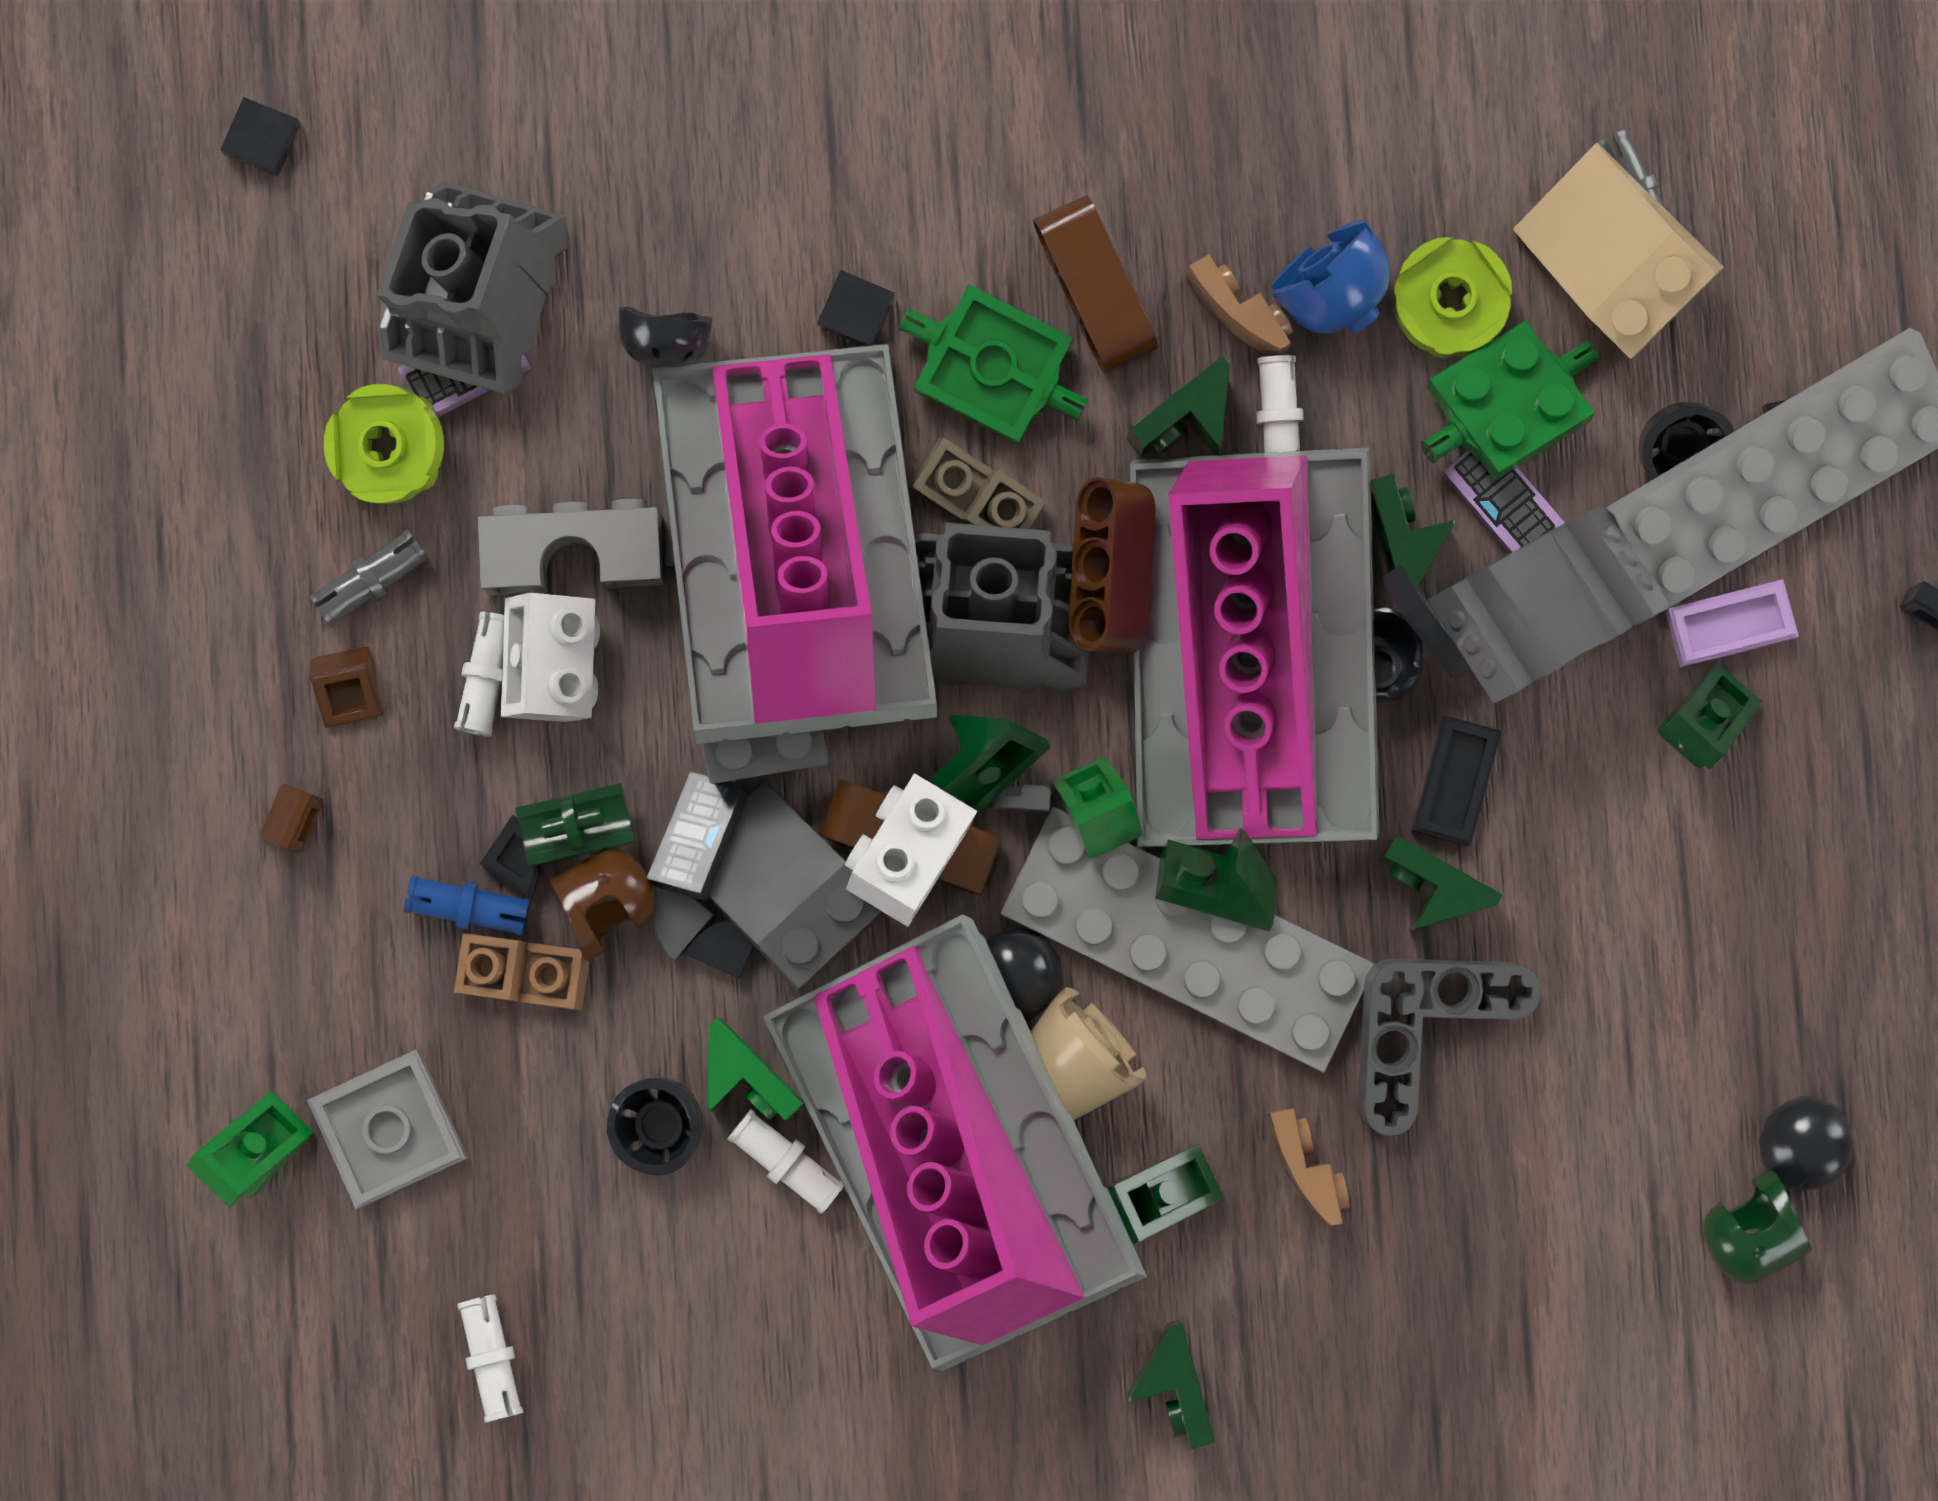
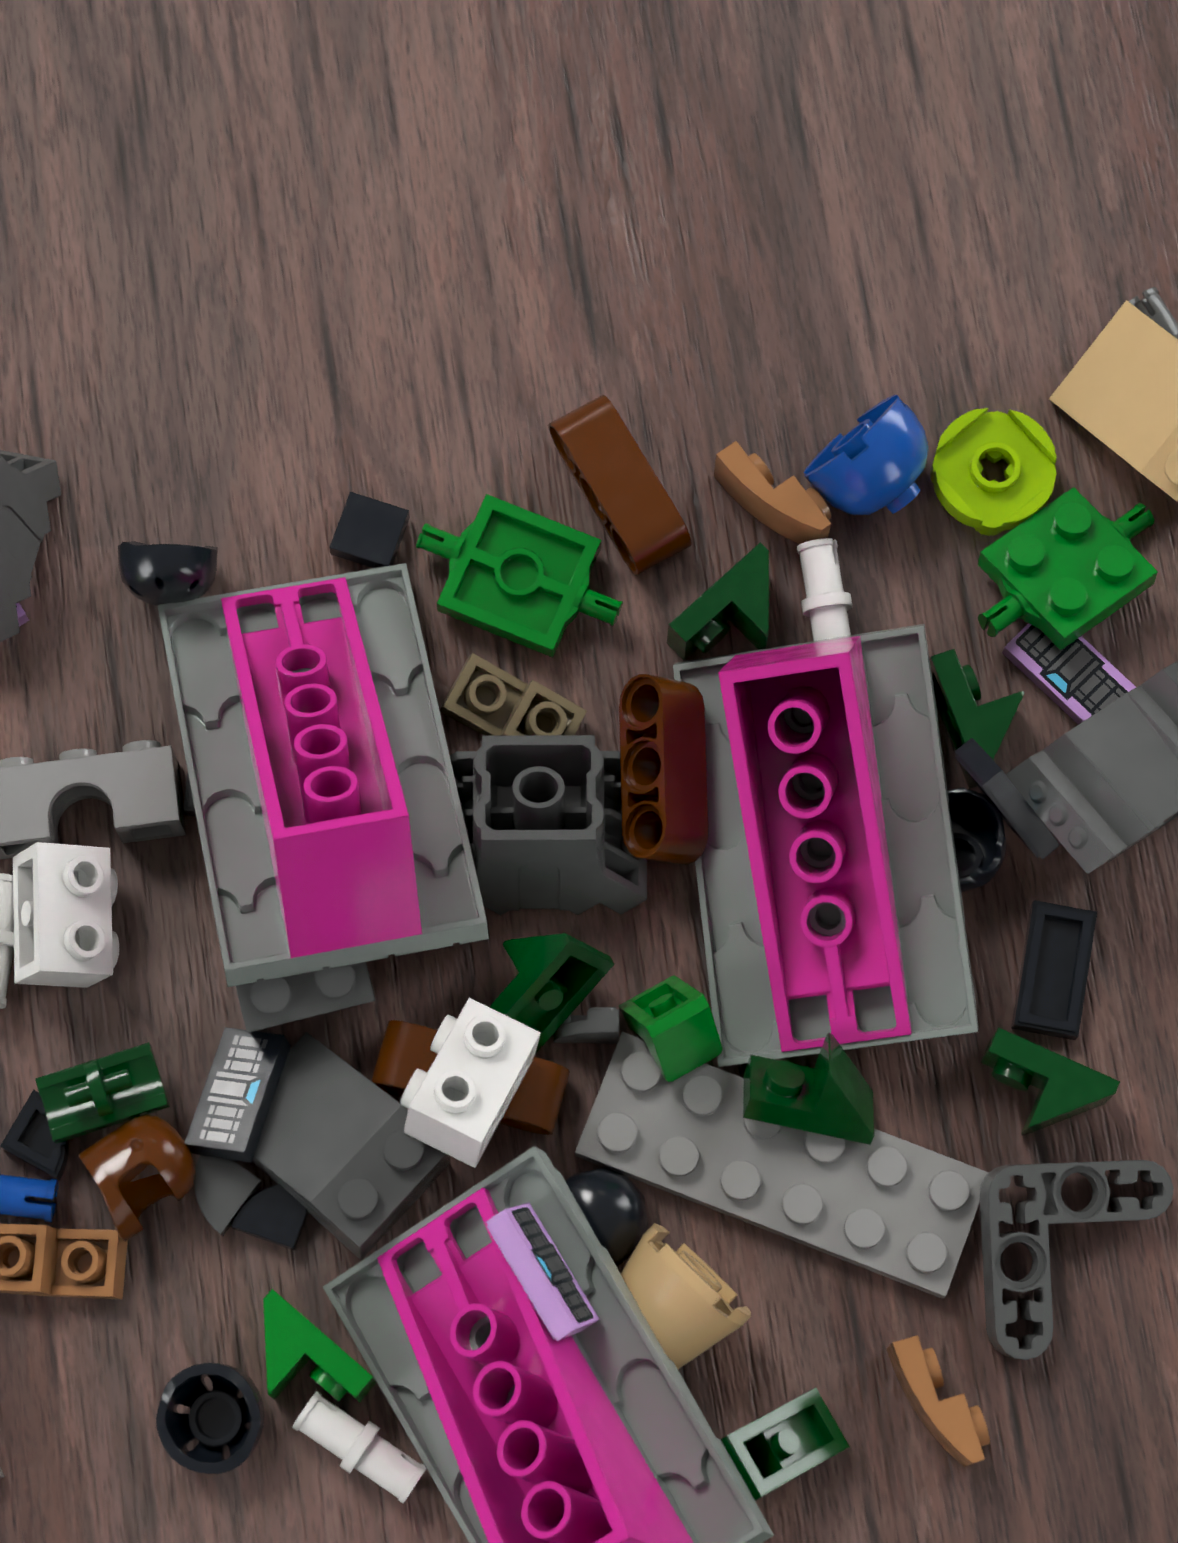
camera: 10 degrees left, 10 degrees down
(960, 1029) = (542, 1271): none -> lavender tile

